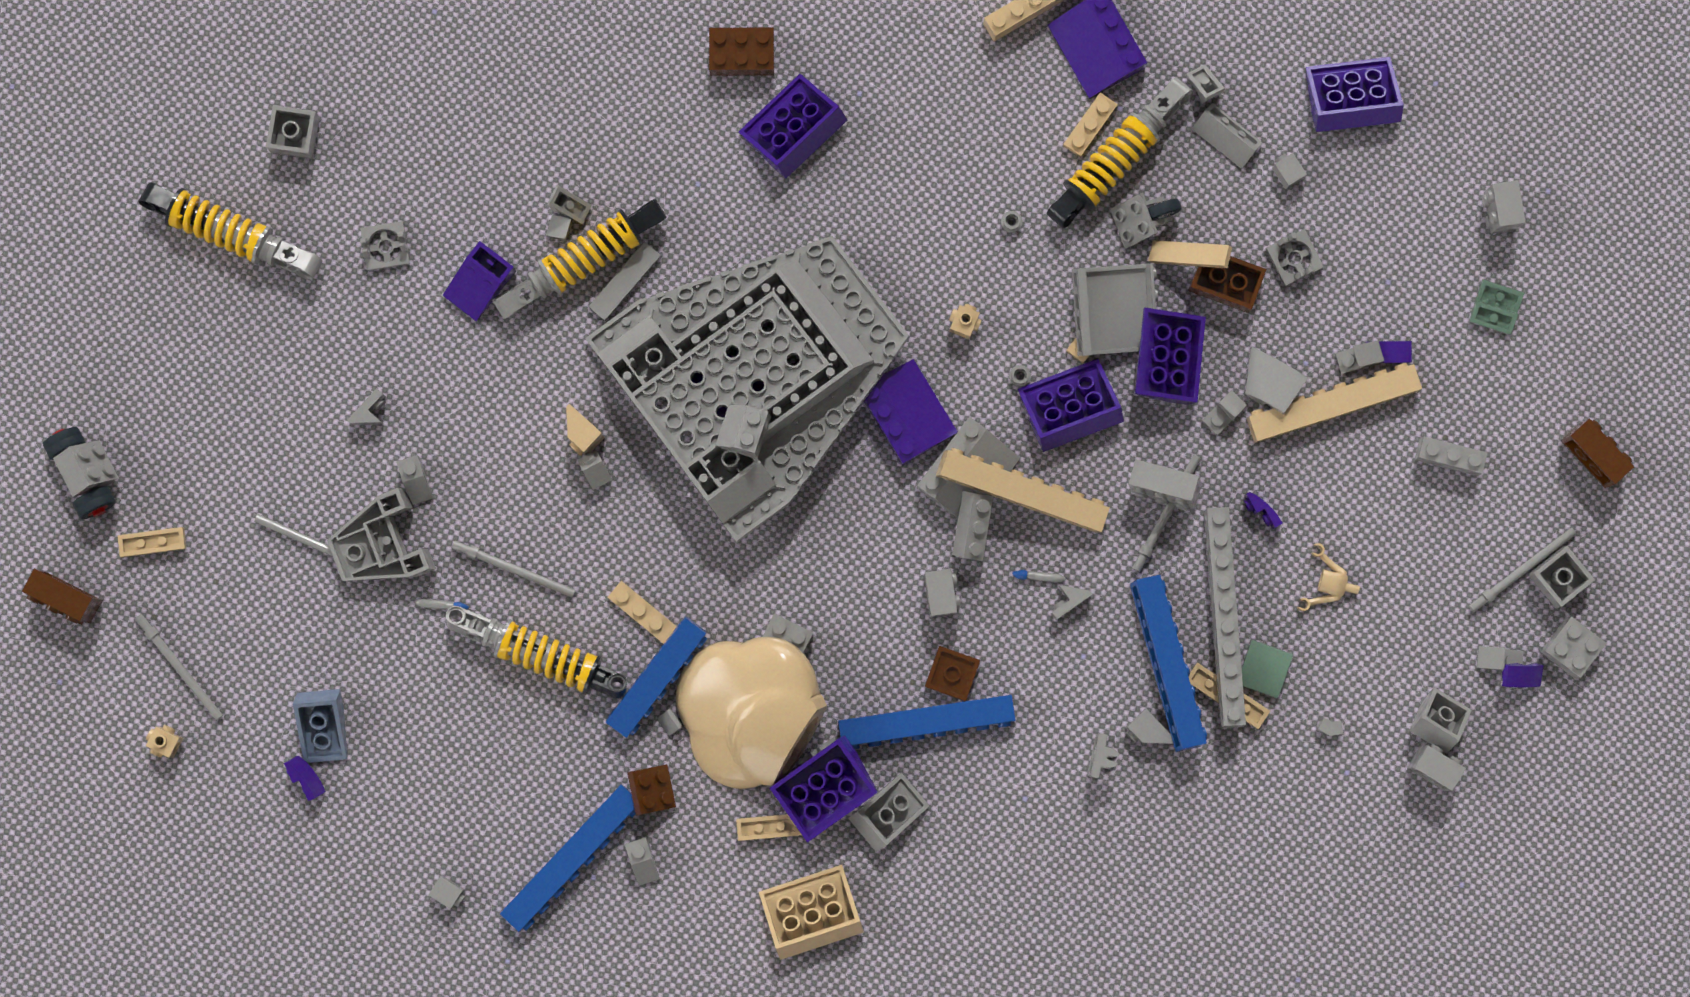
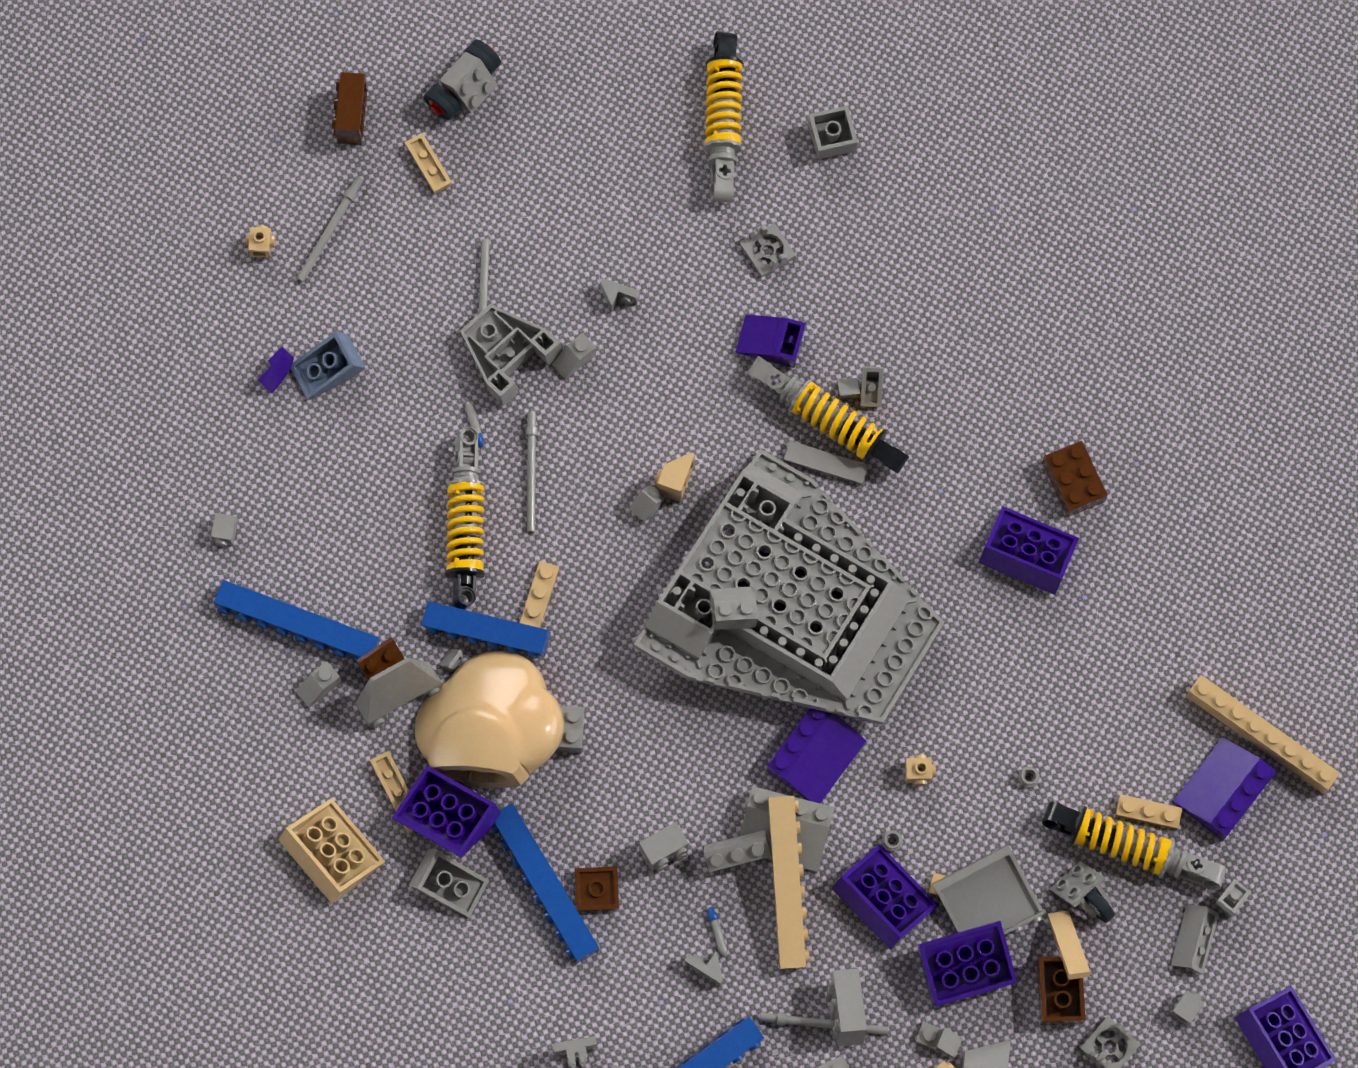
camera: 65 degrees right, 10 degrees down
(684, 787) = (395, 688): none -> light grey wedge

